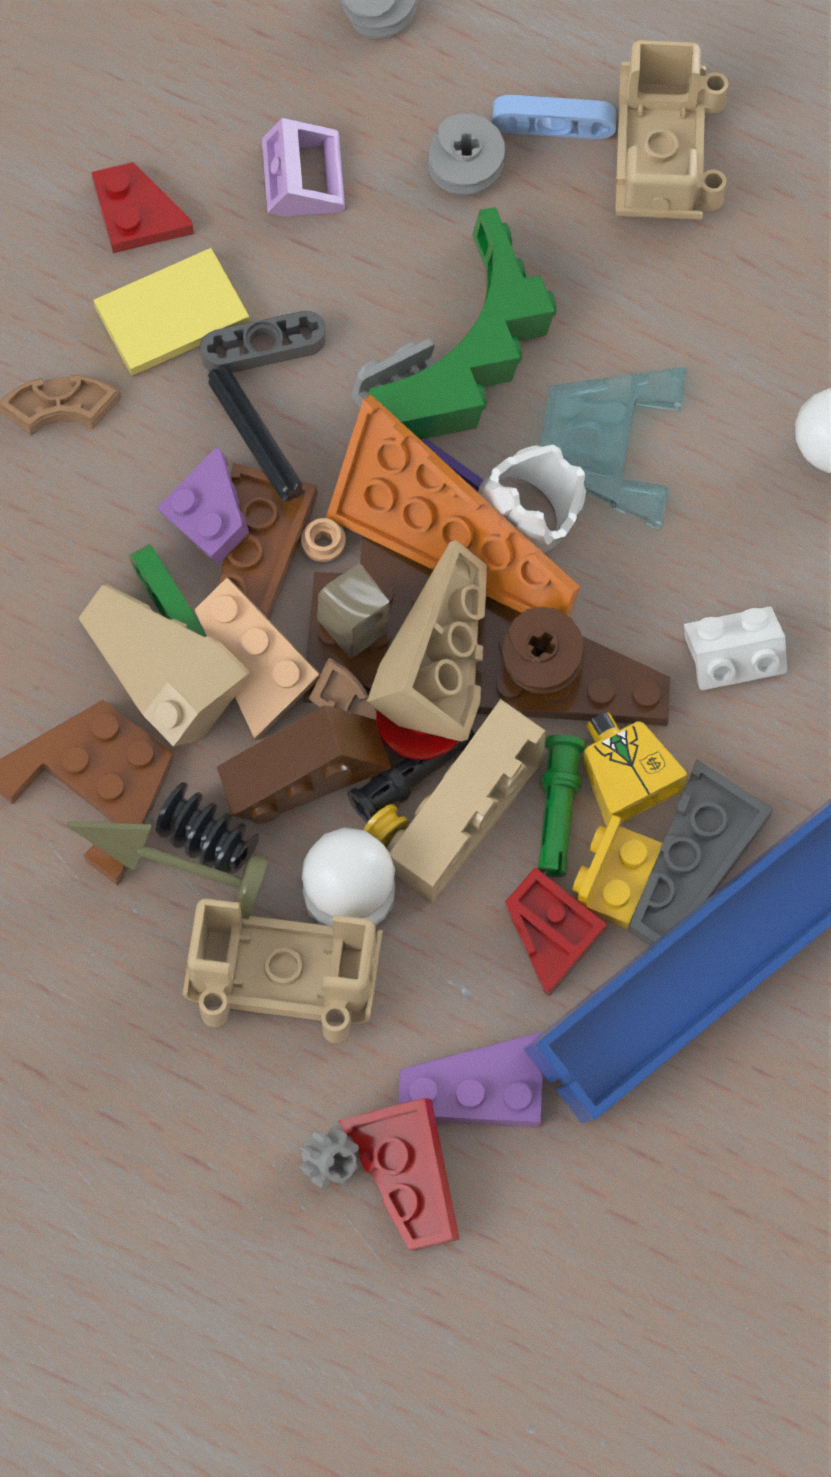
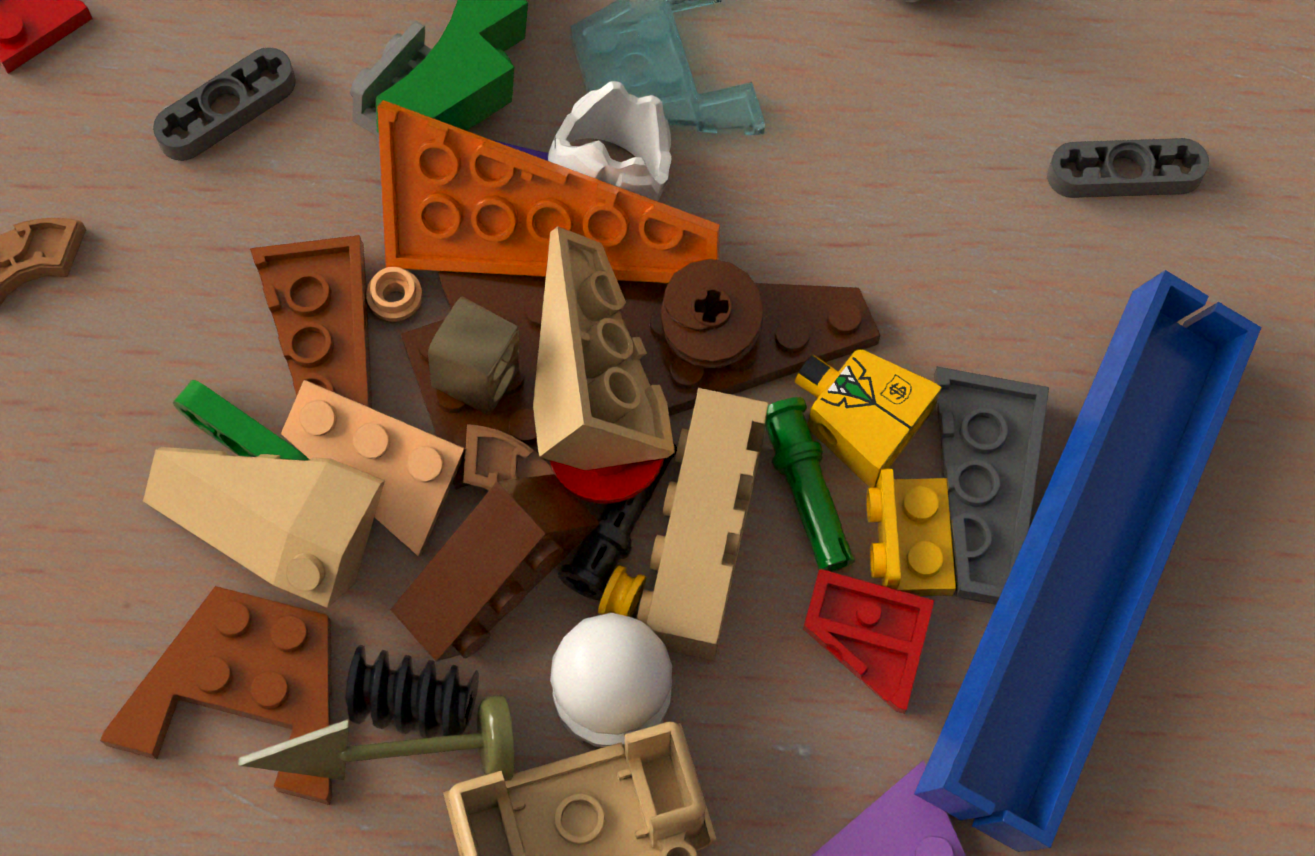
camera: 25 degrees left, 0 degrees up
(170, 311) = (101, 111): light yellow tile -> none
(208, 508) = (243, 311): medium lavender wing -> none
(255, 433) = (262, 205): black axle -> none
(737, 647) = (914, 225): white bracket -> none

